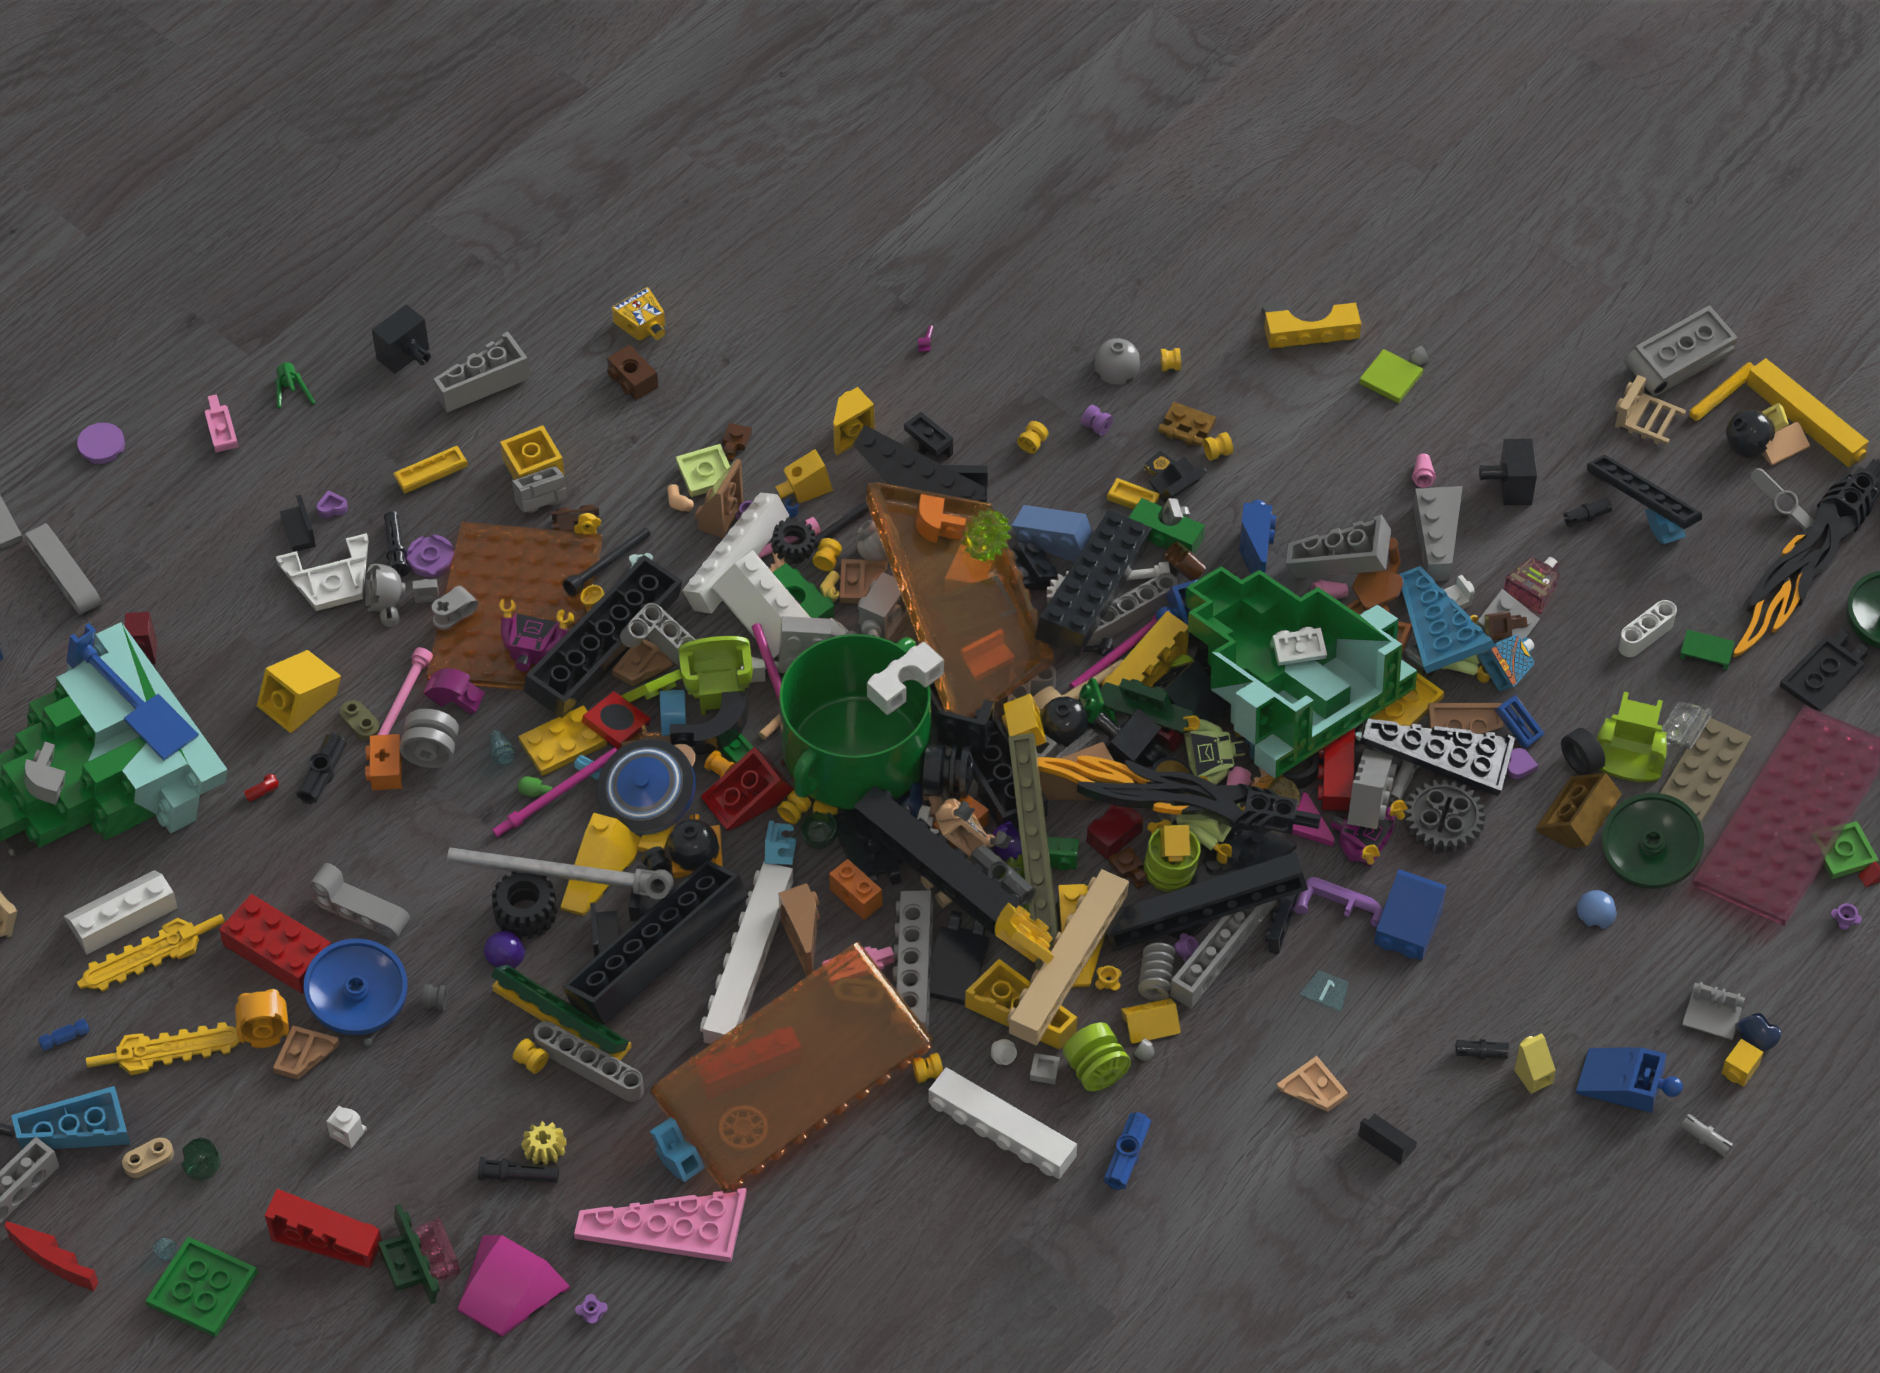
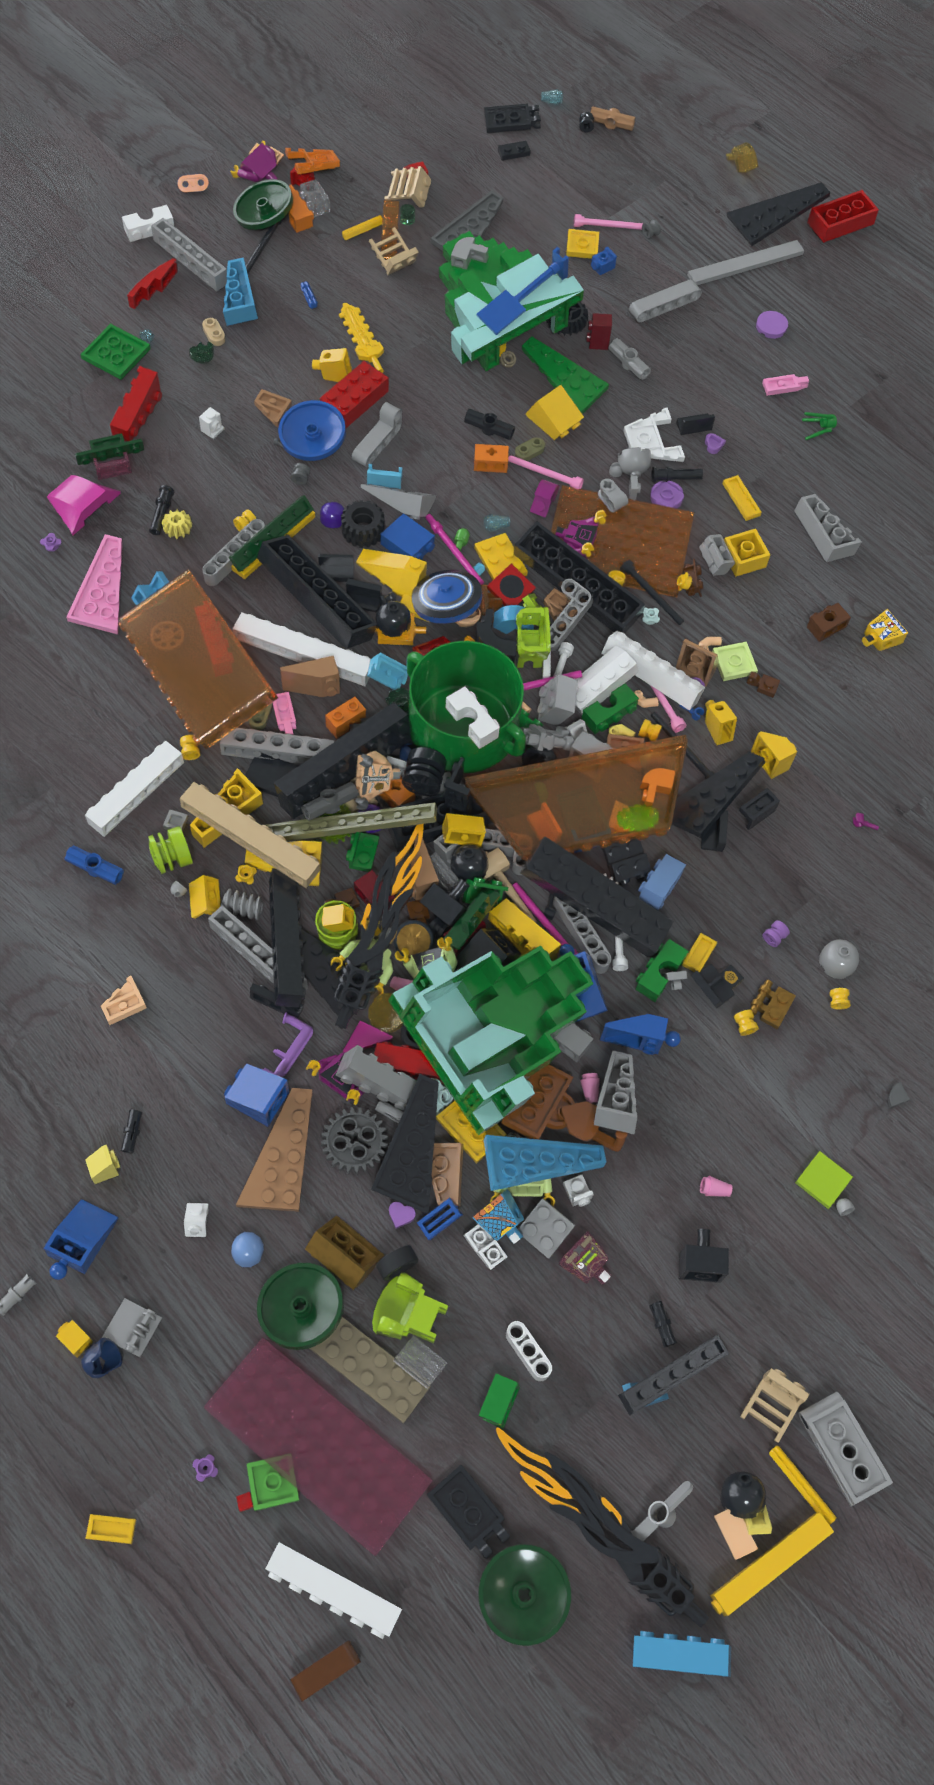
camera: 90 degrees right, 10 degrees up
(121, 911) = (394, 321): white slope -> none
(138, 1053) = (289, 329): yellow bar -> none
(183, 606) = (629, 359): none -> light grey piece
(223, 973) = (333, 364): none -> yellow torso
(225, 676) = (579, 383): none -> green wing
(261, 1018) = (296, 381): light orange brick -> none
(268, 785) = (483, 400): red arm -> none
(401, 340) = (855, 481): black brick -> none
(428, 891) = (384, 478): none -> medium azure hinge
(429, 738) = (501, 476): light grey wheel -> none
(466, 878) = (410, 503): none -> light grey wedge
(547, 841) = (407, 538): none -> blue brick
(640, 881) = (357, 587): flat silver piece -> none
(797, 529) = (657, 715): black tyre -> none
(1024, 934) = (260, 797): yellow brick -> none
(1032, 437) = (755, 882): yellow wheel -> none
(1184, 561) = (616, 970): reddish brown beam -> none
(1186, 946) = (261, 924): medium lavender plate -> none
(1286, 330) = (880, 1144): yellow arch -> none
(1298, 646) = (512, 1035): white bracket -> none
(1326, 990) = (211, 1028): clear light blue sticker -> none
(1386, 1138) = (67, 1046): black panel -> none
(1436, 523) = (648, 1186): light grey wedge -> none
(1490, 890) = (280, 1166): none -> medium nougat wing
(1501, 624) = (531, 1214): reddish brown plate -> none
(1539, 680) = (485, 1246): none -> white slope
(1573, 963) = (196, 1219): none -> white bracket

